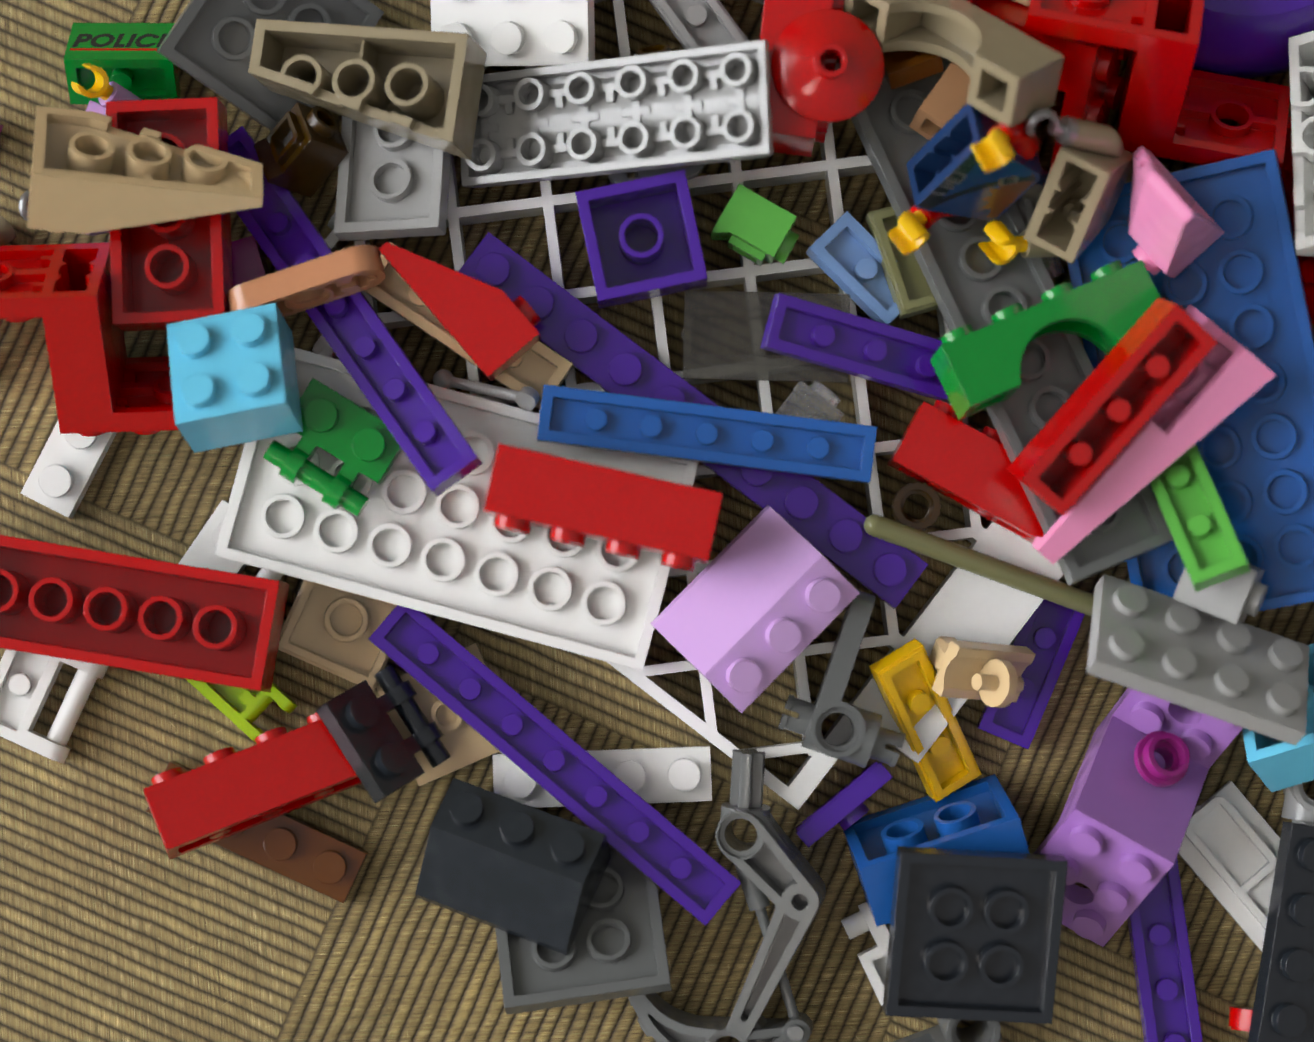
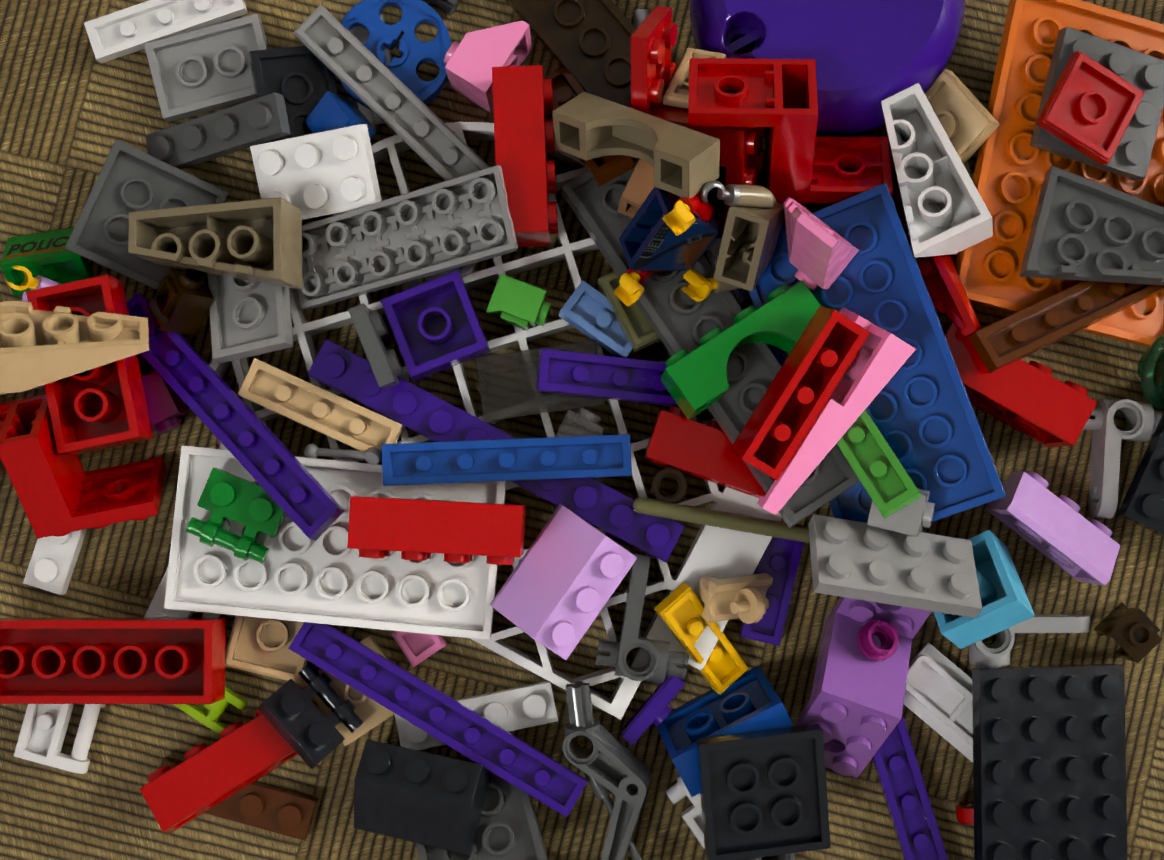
camera: 10 degrees left, 0 degrees up
(234, 378) = (152, 478): medium azure brick -> none
(312, 281) = (195, 401): nougat beam -> none
(473, 312) = (323, 402): red slope -> none
(540, 664) = (418, 646): none -> bright pink tile
(557, 235) = (373, 335): none -> dark grey plate
(811, 88) = (548, 197): red dish -> none

